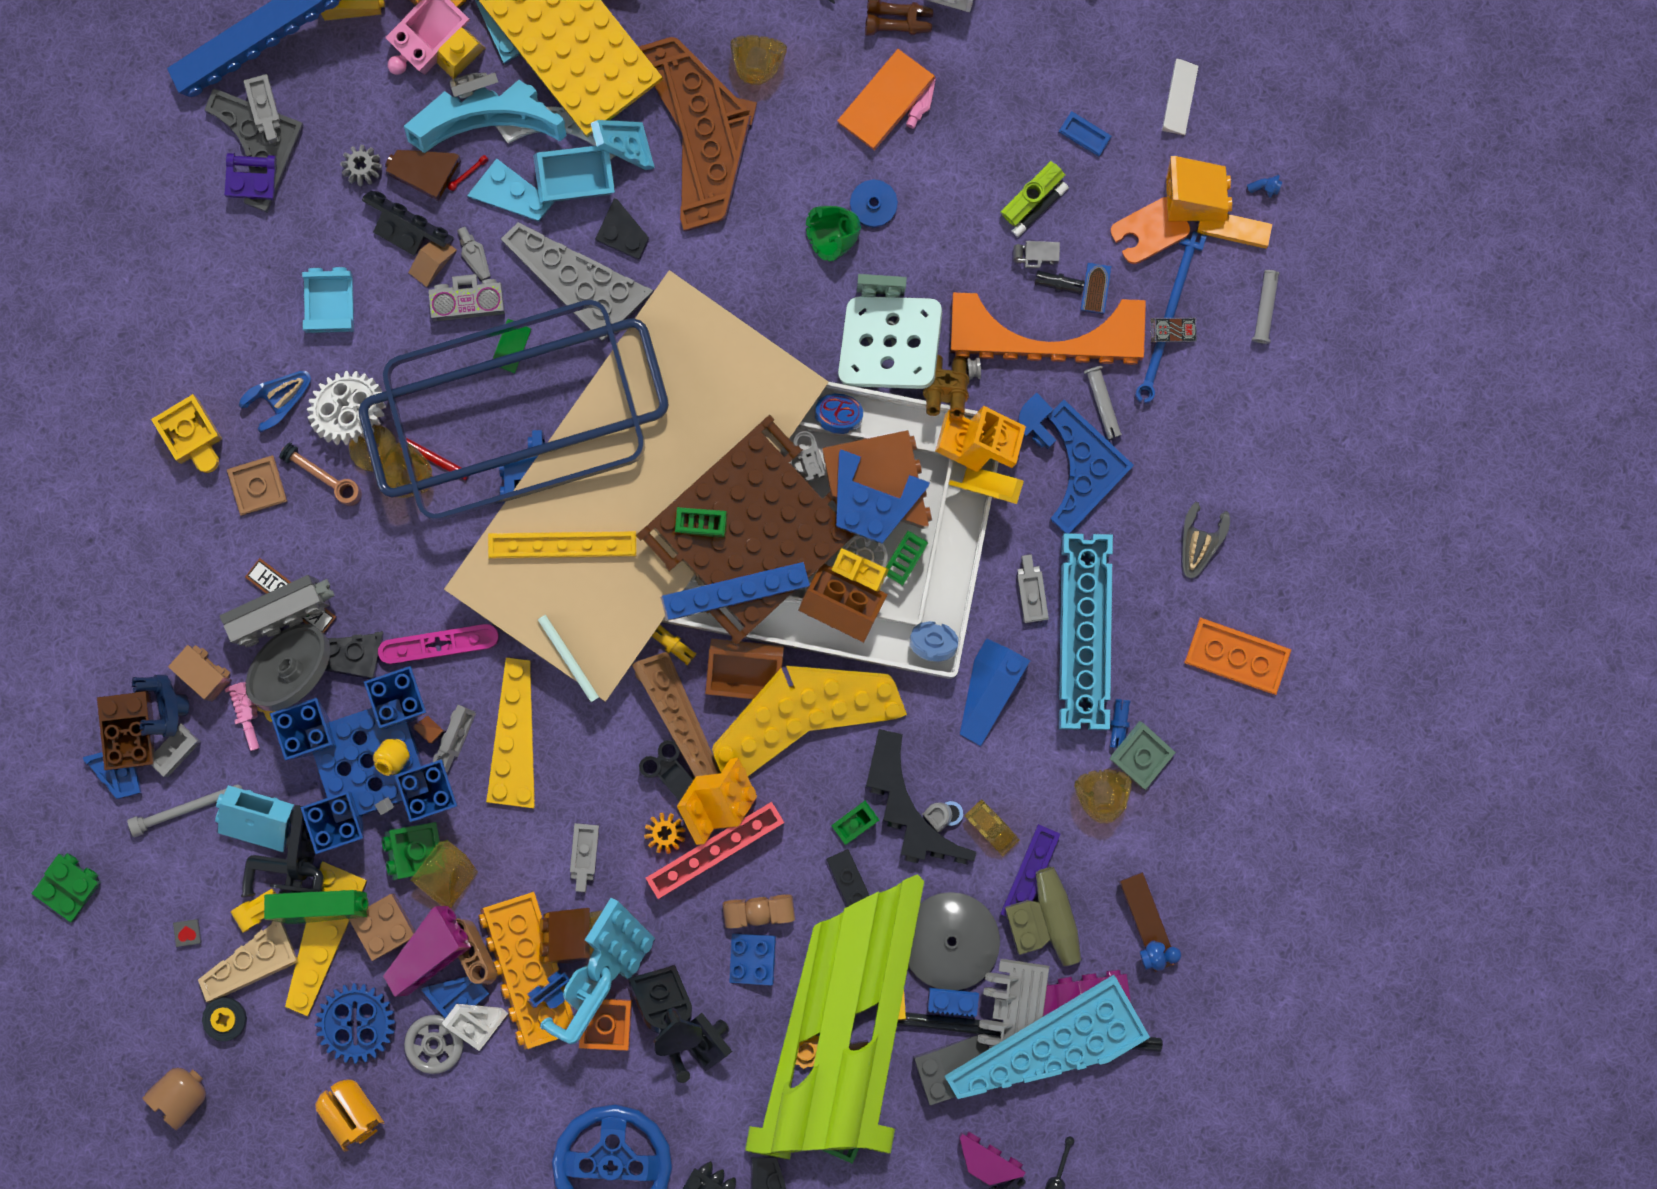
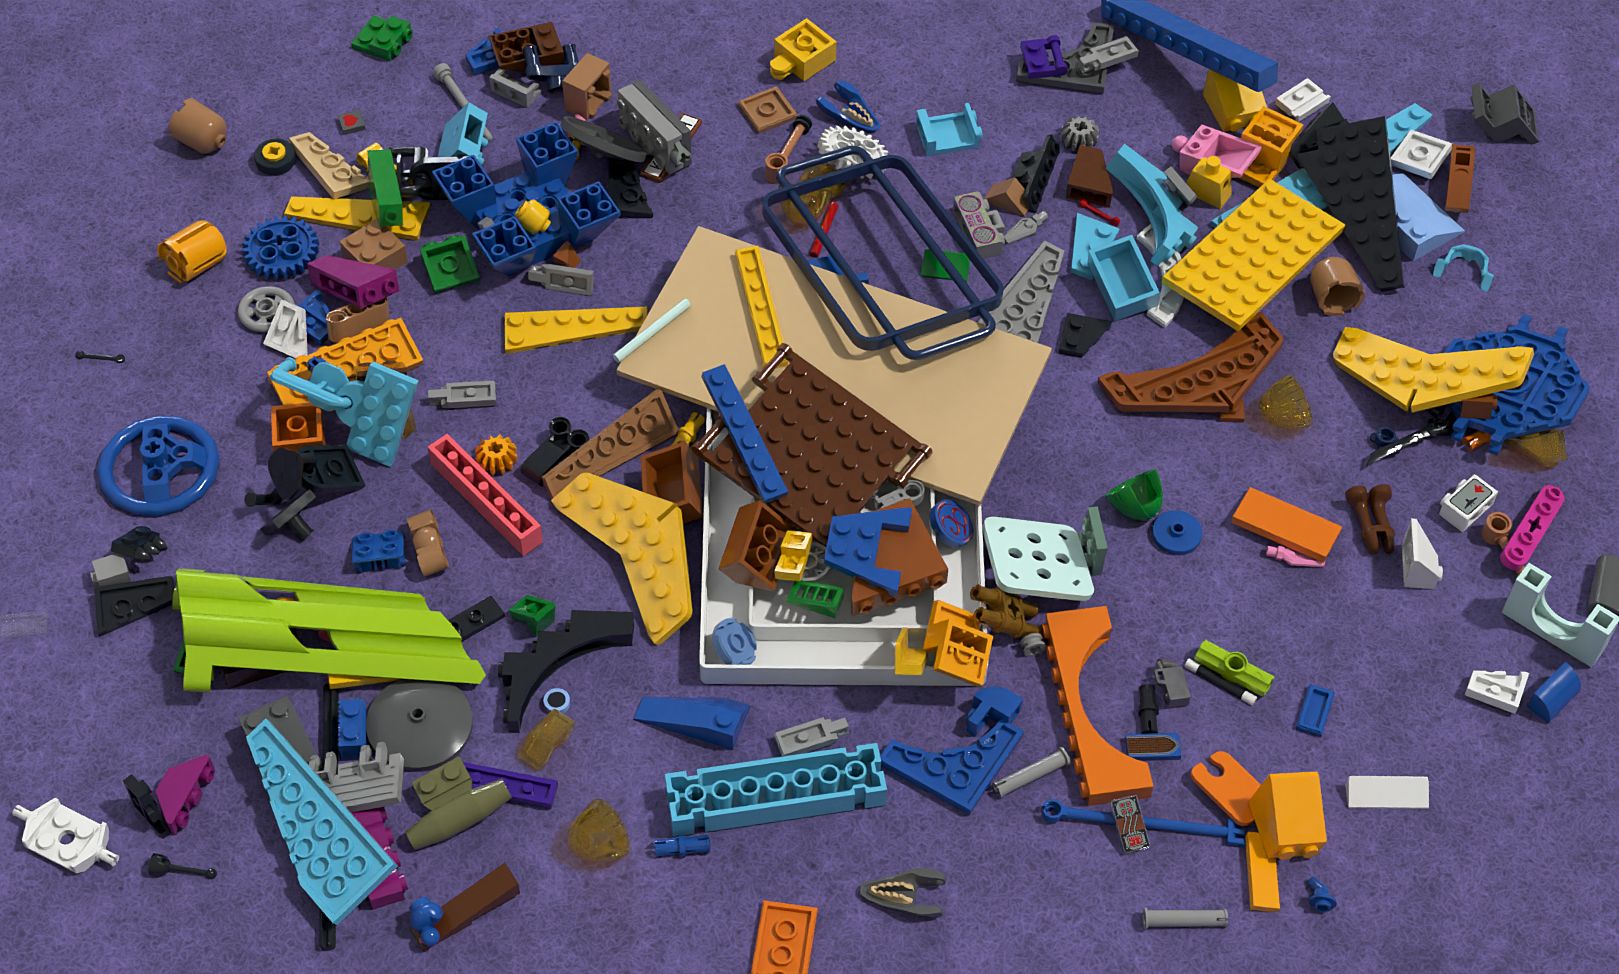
camera: 85 degrees right, 30 degrees down
(445, 874) = (430, 287): clear yellow slope -> none
(462, 641) = (642, 238): dark pink piece -> none
(624, 140) = (1168, 309): medium azure wing -> none
(712, 514) = (807, 409): green slope -> none
(717, 801) = (533, 478): light orange bracket -> none
(938, 815) = (551, 686): light grey tile -> none
(1142, 755) = (650, 869): sand green plate -> none

